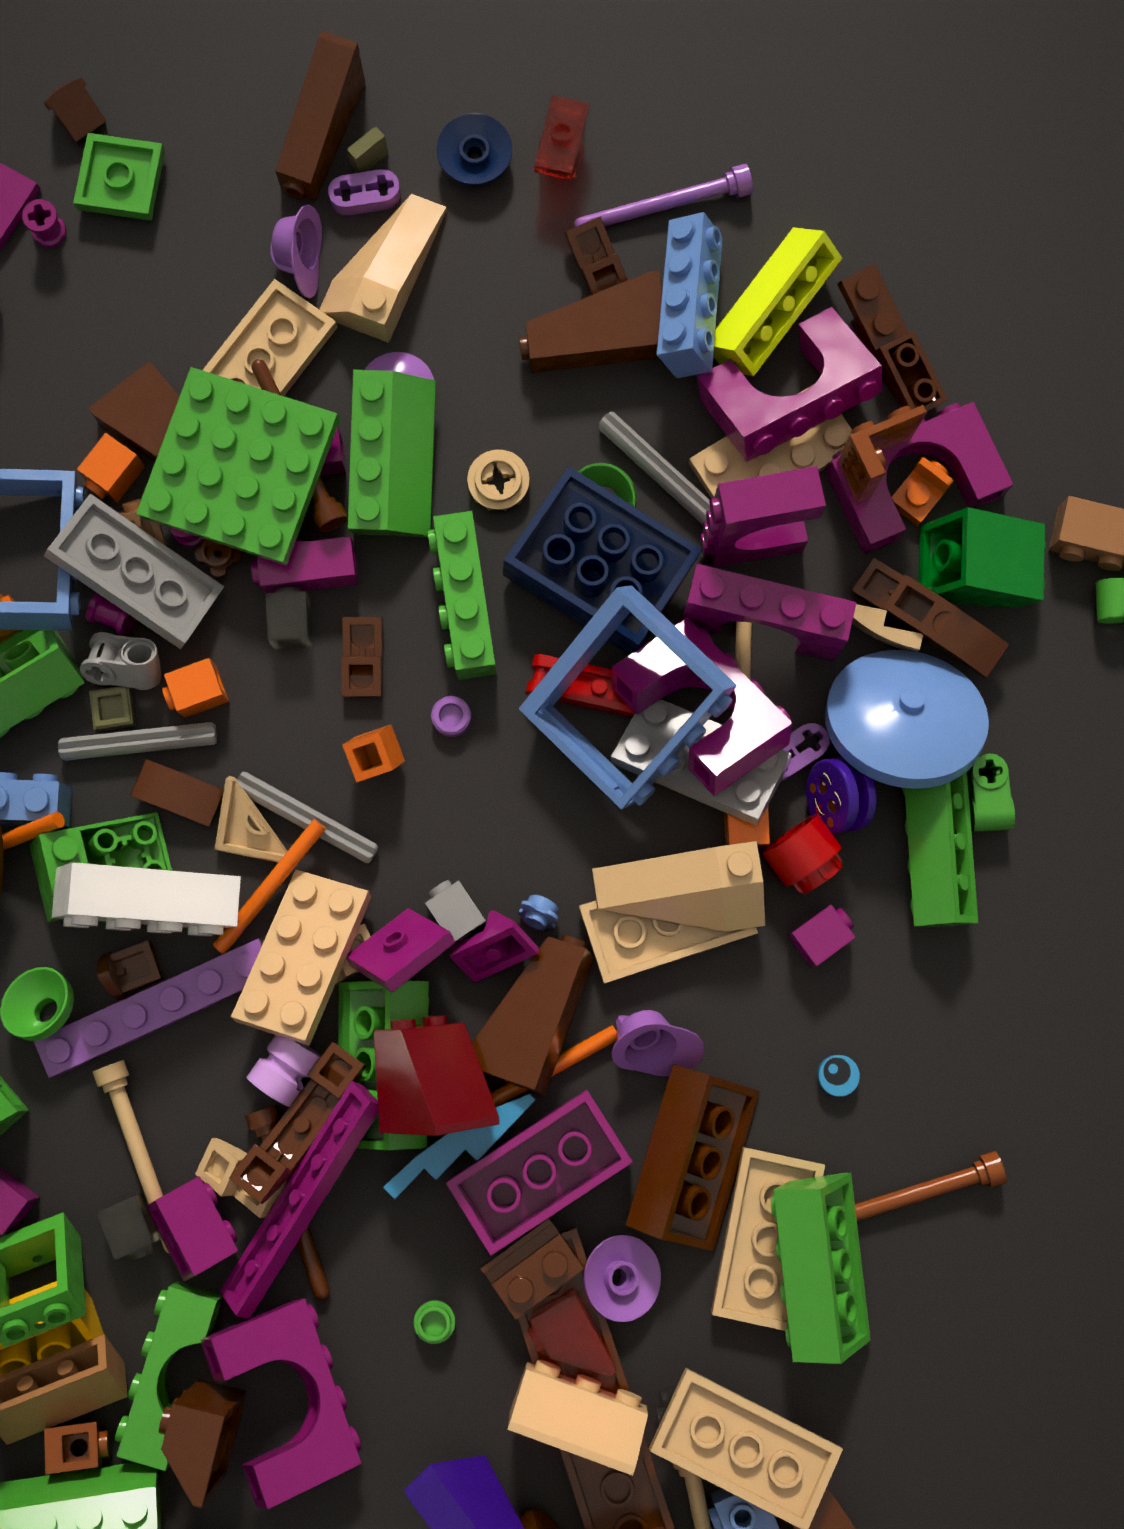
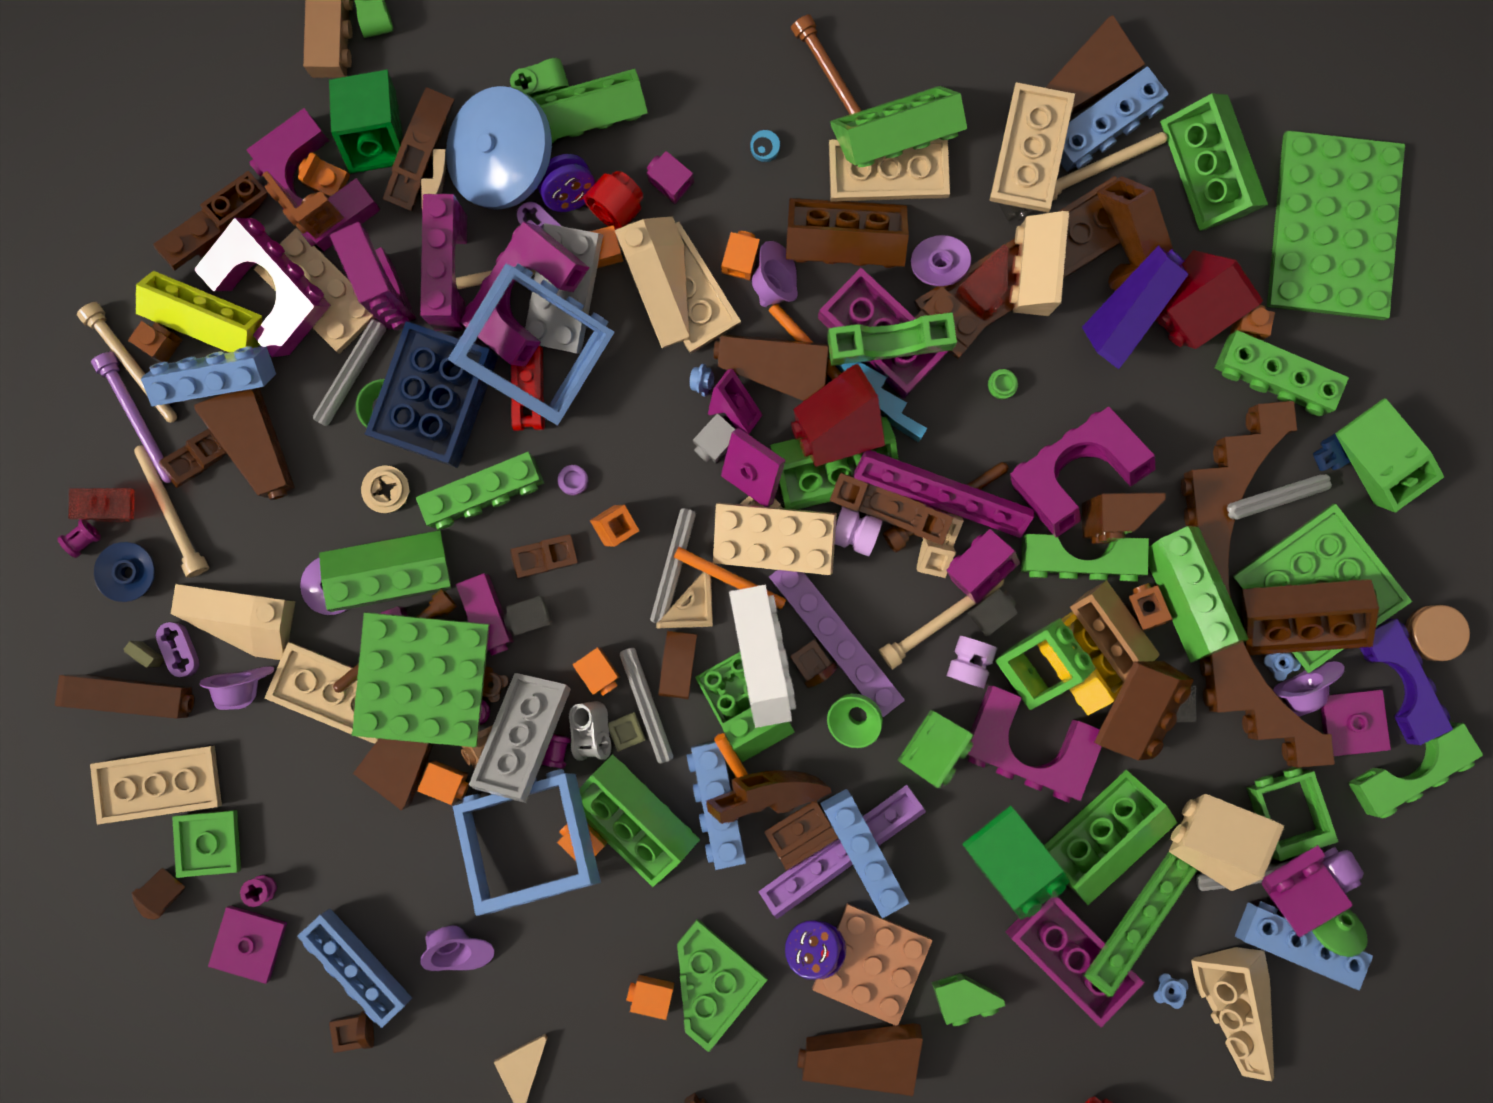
camera: 100 degrees left, 5 degrees up
(70, 1180) = (967, 672): none -> lavender wheel
(206, 134) = (155, 785): none -> tan plate
(467, 231) = (193, 563): none -> tan piece
(517, 1178) = (910, 338): none -> bright green arch
(529, 105) = (79, 538): none -> magenta bush
(694, 1005) = (740, 255): none -> orange brick
(752, 243) = (155, 341): none -> dark orange brick
(802, 179) = (94, 317): none -> tan piece

